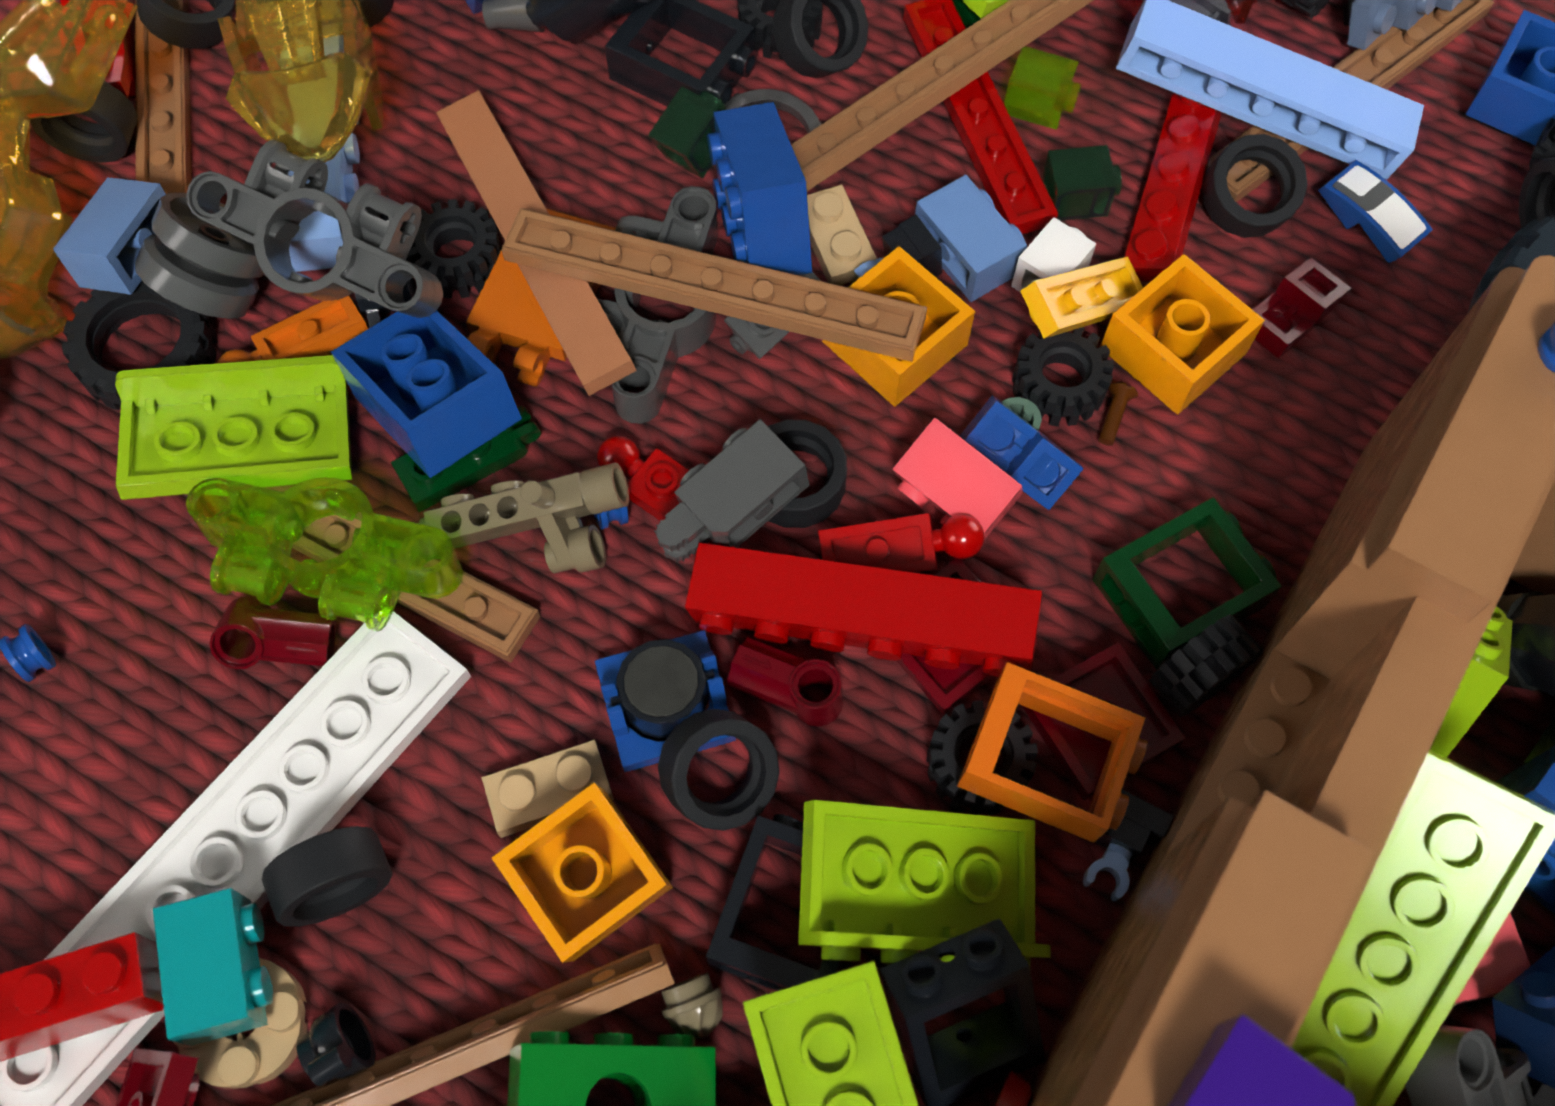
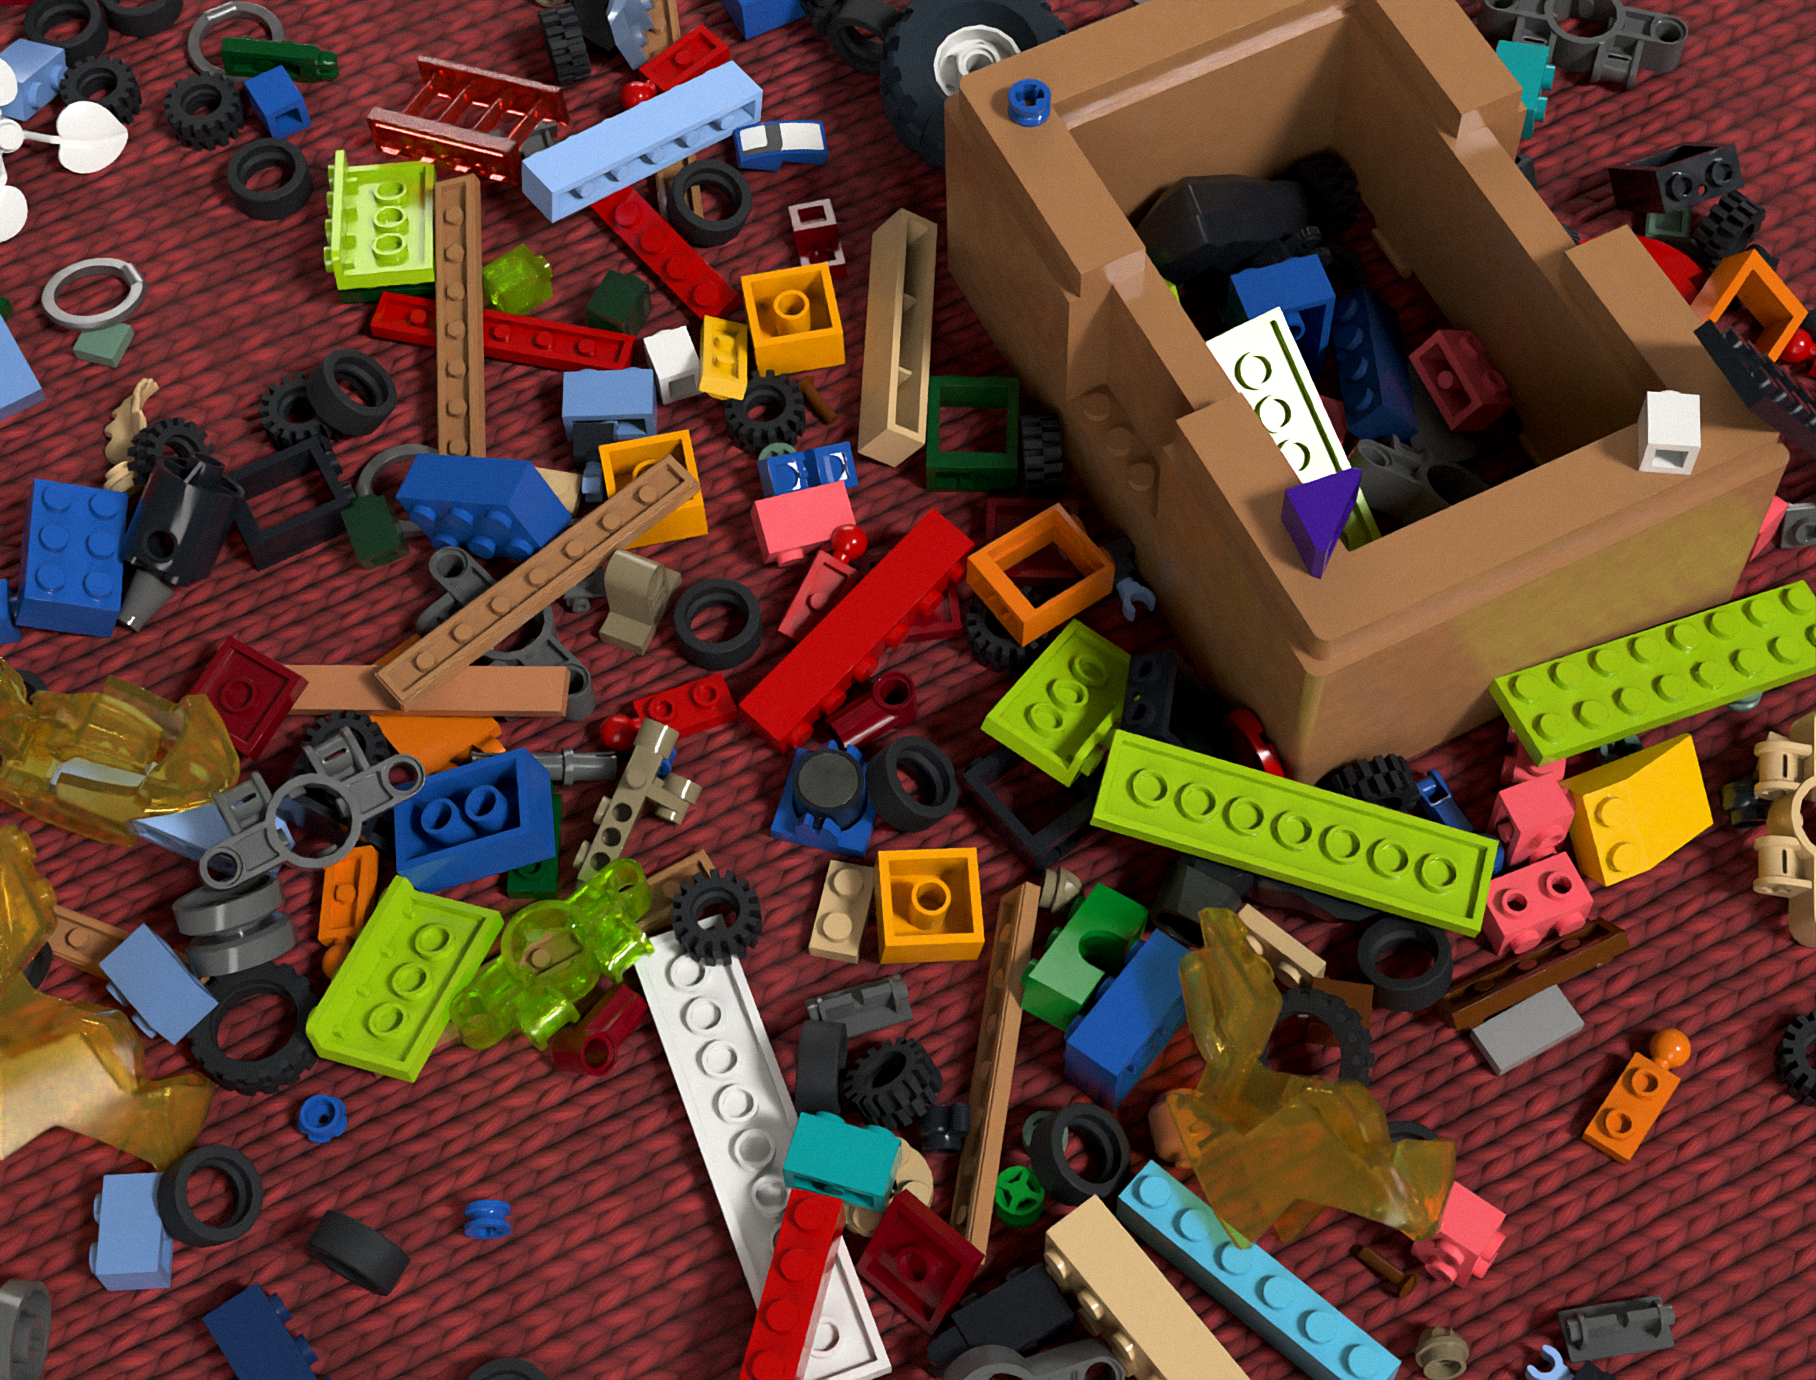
camera: 55 degrees left, 5 degrees down
(67, 441) = (320, 1106): none -> blue plate
(354, 988) = (893, 1083): none -> black tyre
(426, 640) = (714, 891): none -> black tyre
(439, 871) = (864, 1006): none -> dark grey hinge
(450, 130) = (249, 694): none -> dark red plate
(547, 429) = (570, 765): none -> dark grey pin
(732, 493) = (718, 660): dark grey hinge -> none
(774, 383) = (637, 599): none -> dark tan tile
(1238, 441) = (898, 338): none -> tan brick
(1395, 70) = (677, 64): none -> red plate

